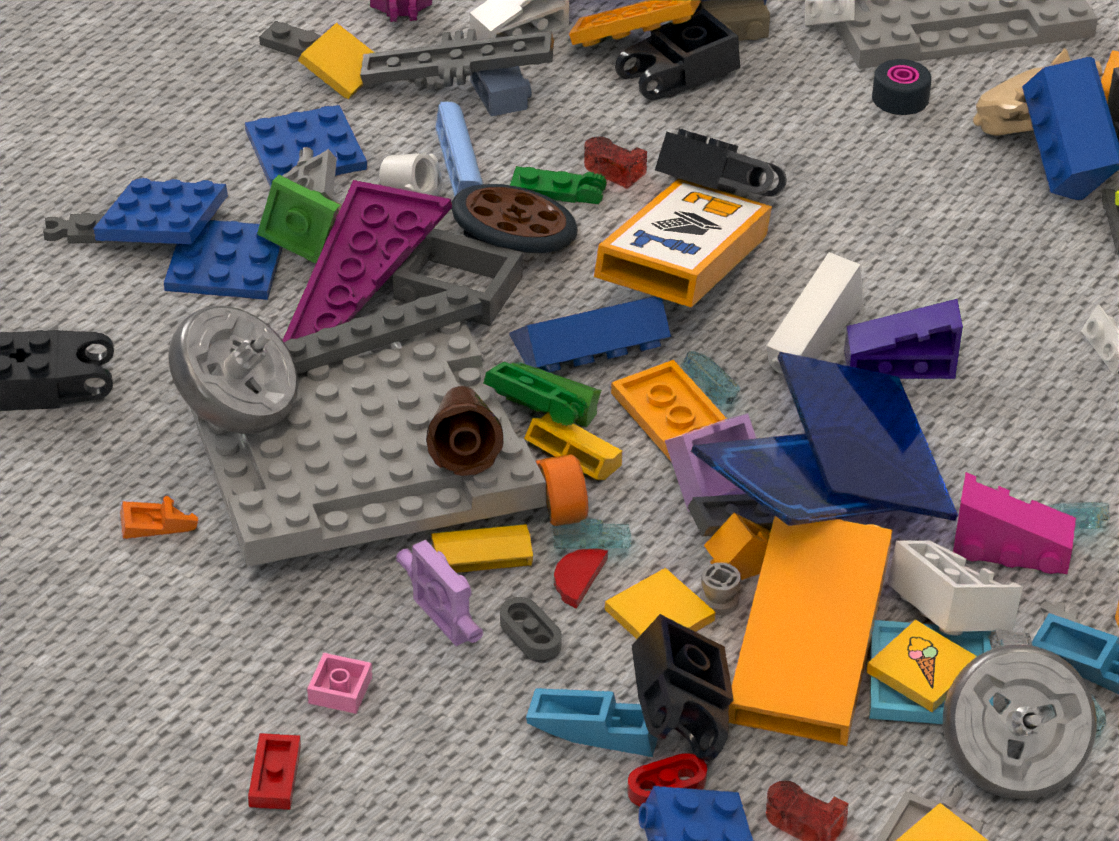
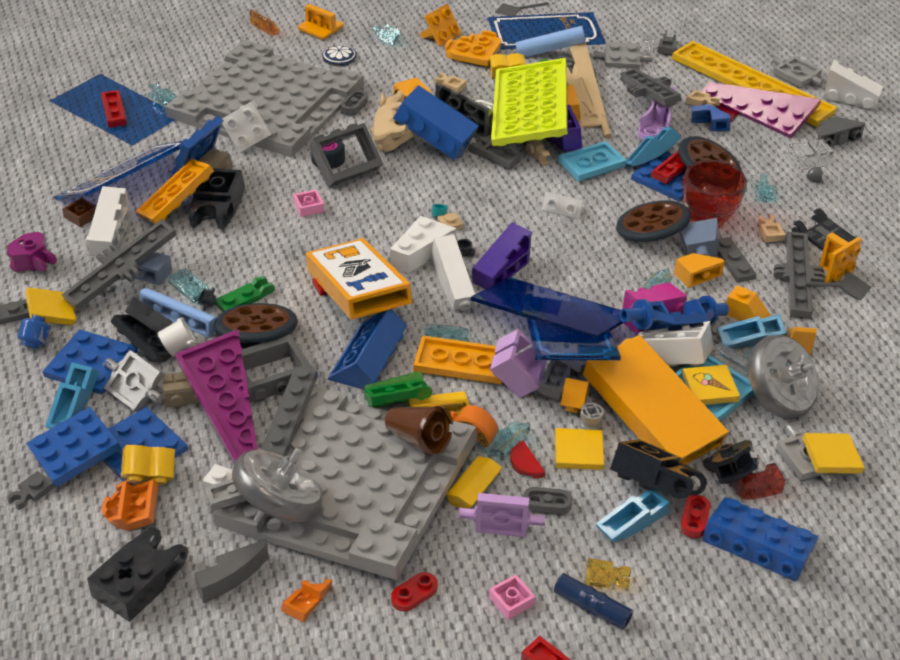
camera: 50 degrees left, 0 degrees up
(124, 435) = (231, 570): none -> dark grey slope
(128, 310) = (131, 505): none -> orange slope
(192, 276) = (147, 463): none -> yellow brick
(237, 162) = (72, 394): none -> dark azure slope
(260, 598) = (415, 590): none -> red plate
(286, 75) = (33, 332): none -> blue head
(297, 218) = (167, 394): bright green tile -> none
(382, 137) = (141, 337): none -> black wing
(410, 757) = (593, 601): none -> dark blue axle
(415, 129) = (147, 315): none -> black slope
(469, 743) = (602, 574): none -> clear yellow plate
(507, 159) = (207, 298): none -> black plate
(513, 134) = (187, 284): none -> clear light blue plate
(614, 162) = (256, 266): clear red leg -> none
(716, 165) = (315, 235): black brick -> none
(787, 131) = (308, 203): none -> bright pink piece
(793, 757) = (732, 462): none -> black hinge
(802, 254) = (416, 244): none -> white wedge
(892, 302) = (465, 247): none -> black plate
(905, 64) = (366, 143): none -> dark grey window
(927, 265) = (452, 220): none -> tan plate
(932, 241) = (439, 210): none -> teal hinge
(982, 553) = (655, 316): none -> blue plate
(1038, 47) = (354, 102): none -> dark grey plate

